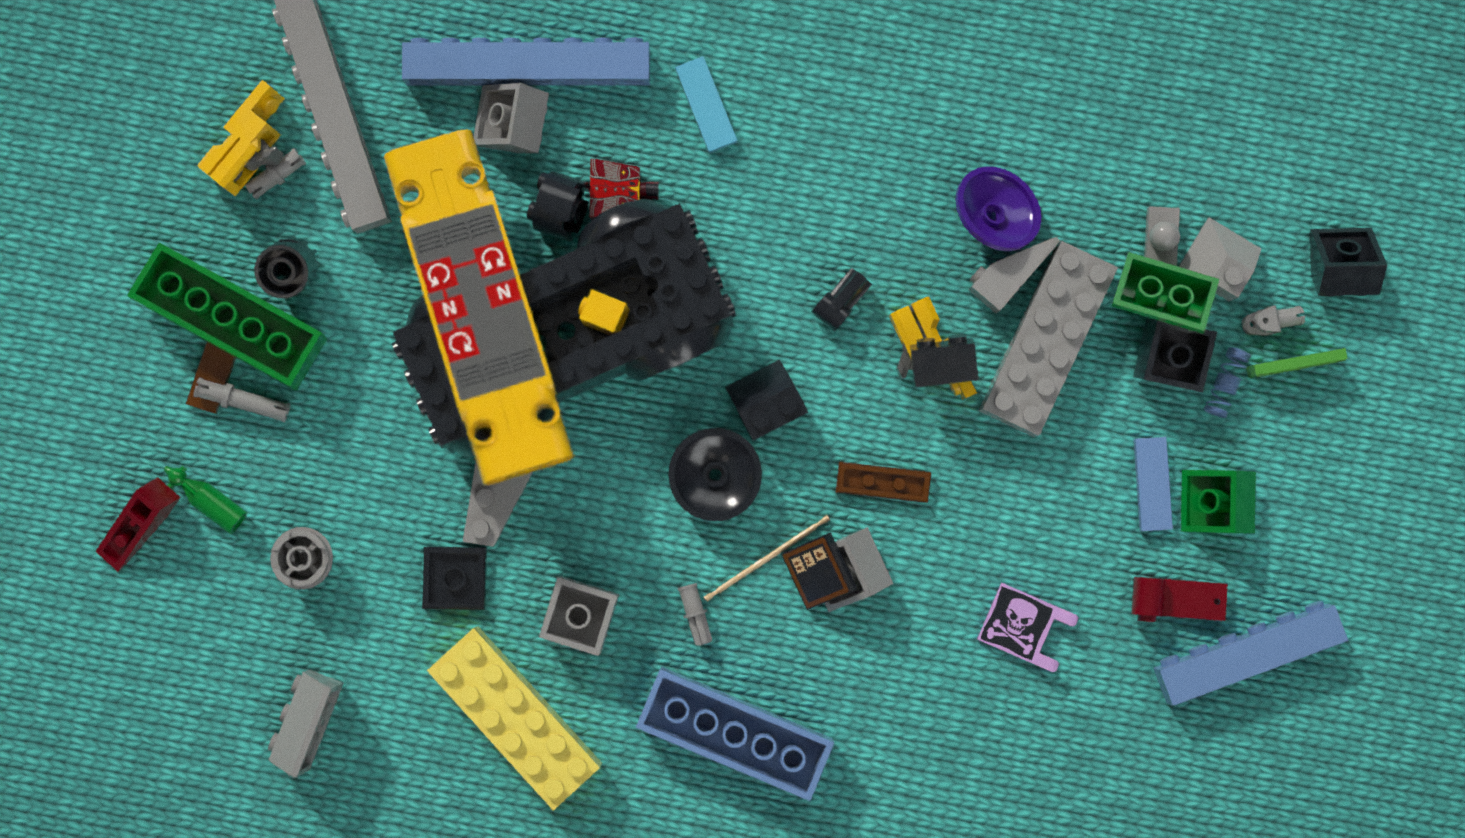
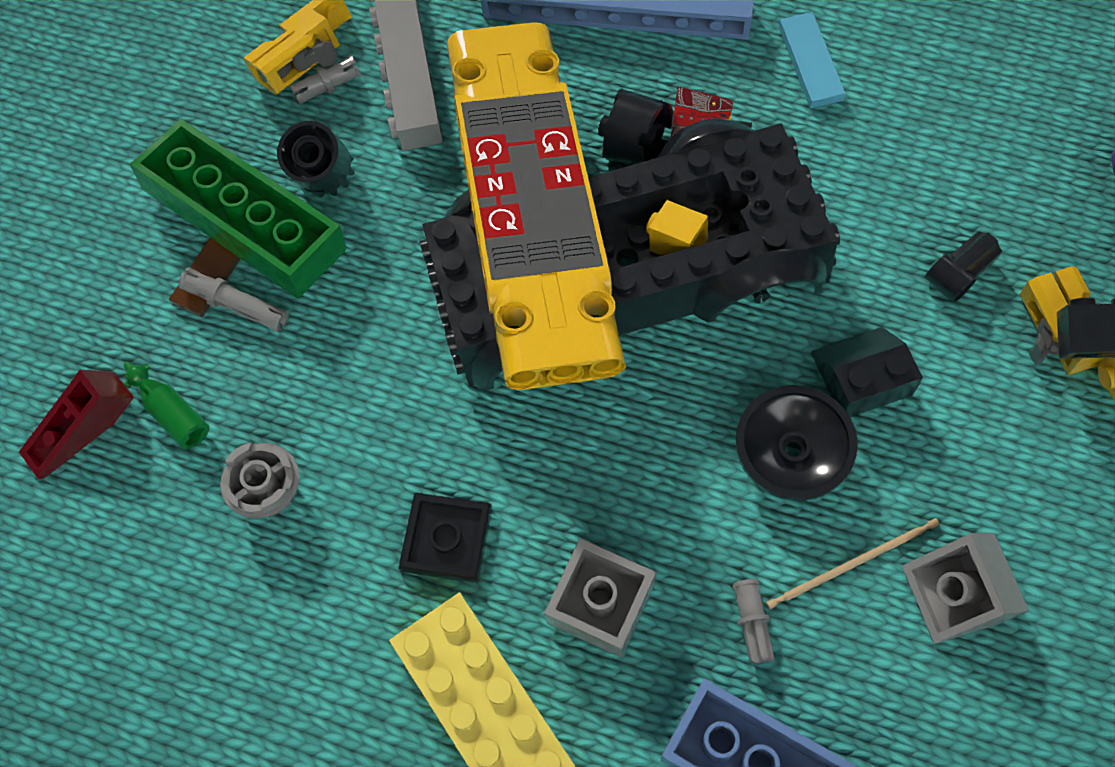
camera: 15 degrees right, 20 degrees down
(304, 722) = (217, 694): light grey slope -> none
(491, 508) = (511, 442): light grey wing -> none
(511, 118) = (595, 47): light grey slope -> none
(819, 571) = (928, 581): tile -> none
(883, 482) = (1012, 485): reddish brown tile -> none

